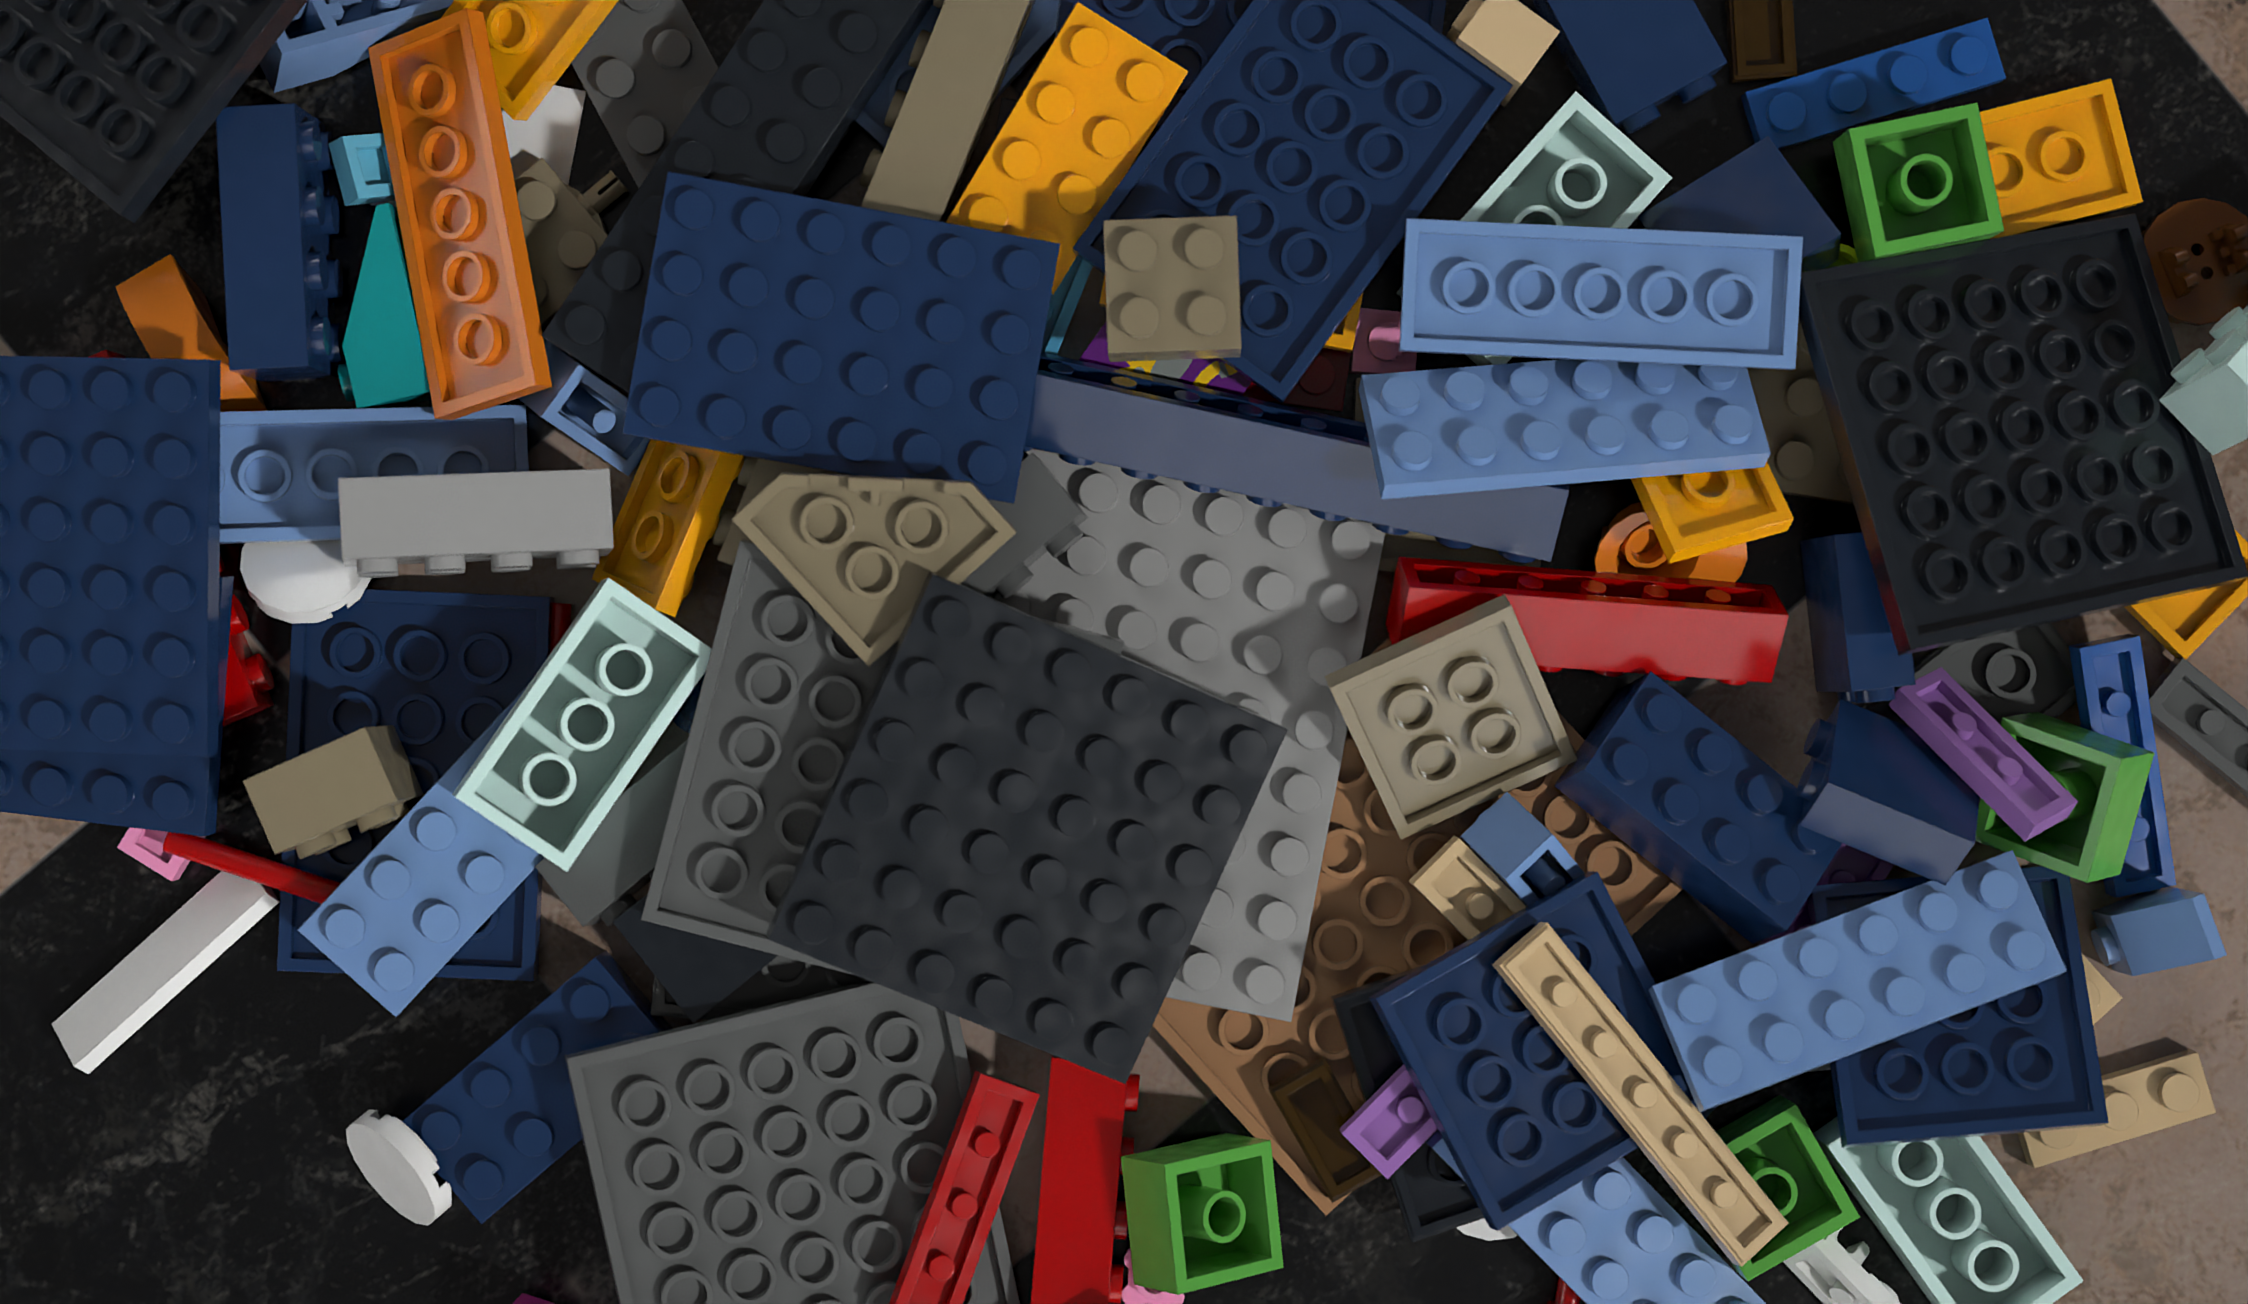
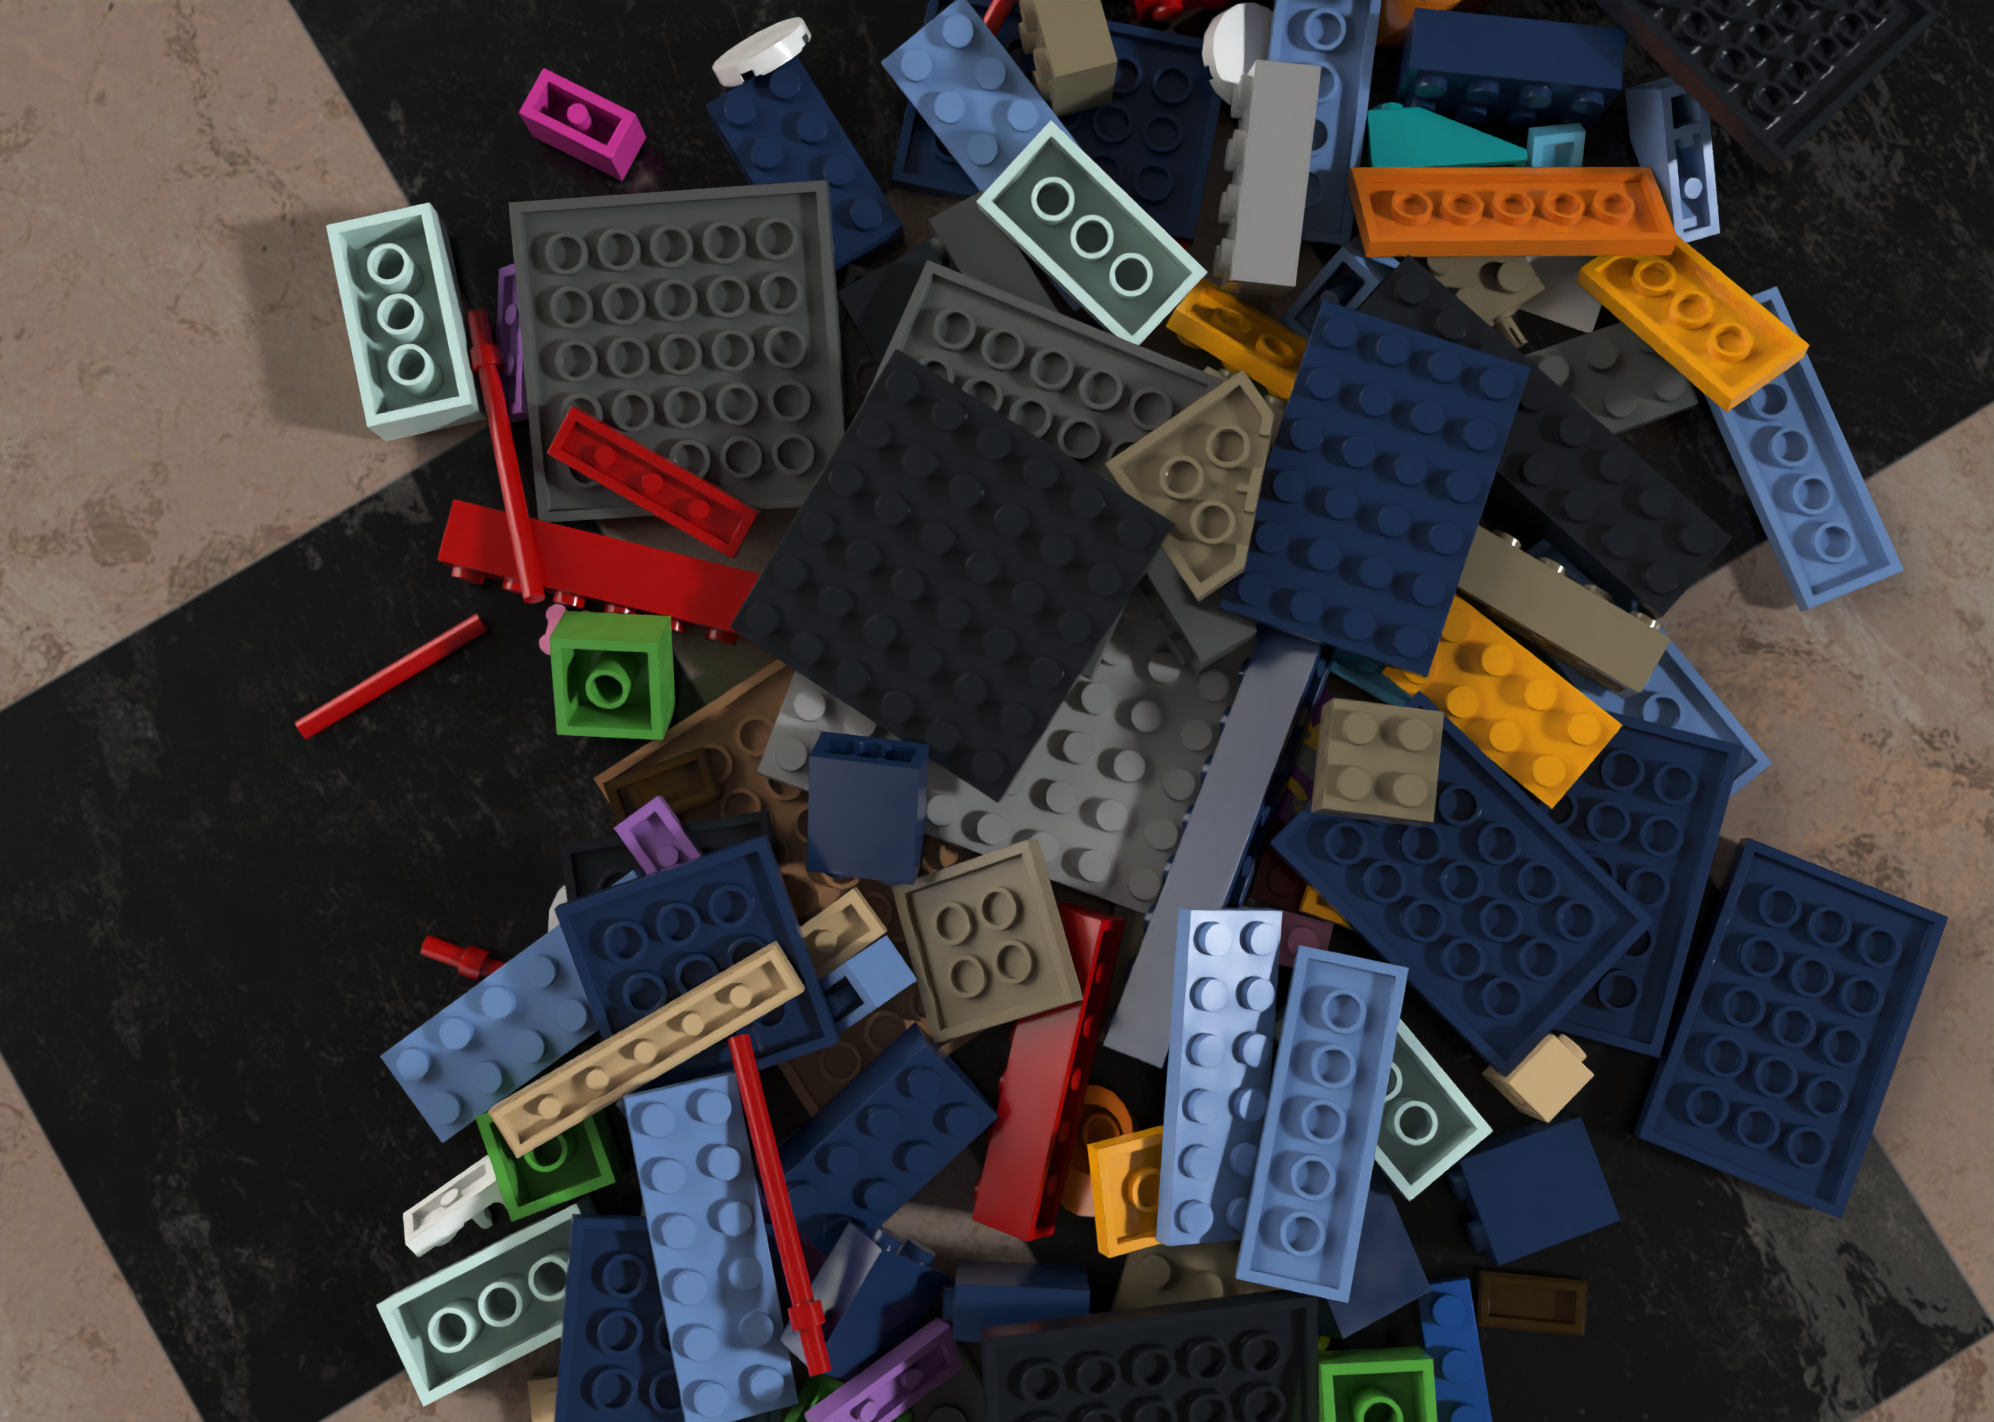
camera: 100 degrees right, 5 degrees down
(1317, 883) = (867, 808): none -> dark blue brick
(1913, 858) = (806, 1312): none -> red bar

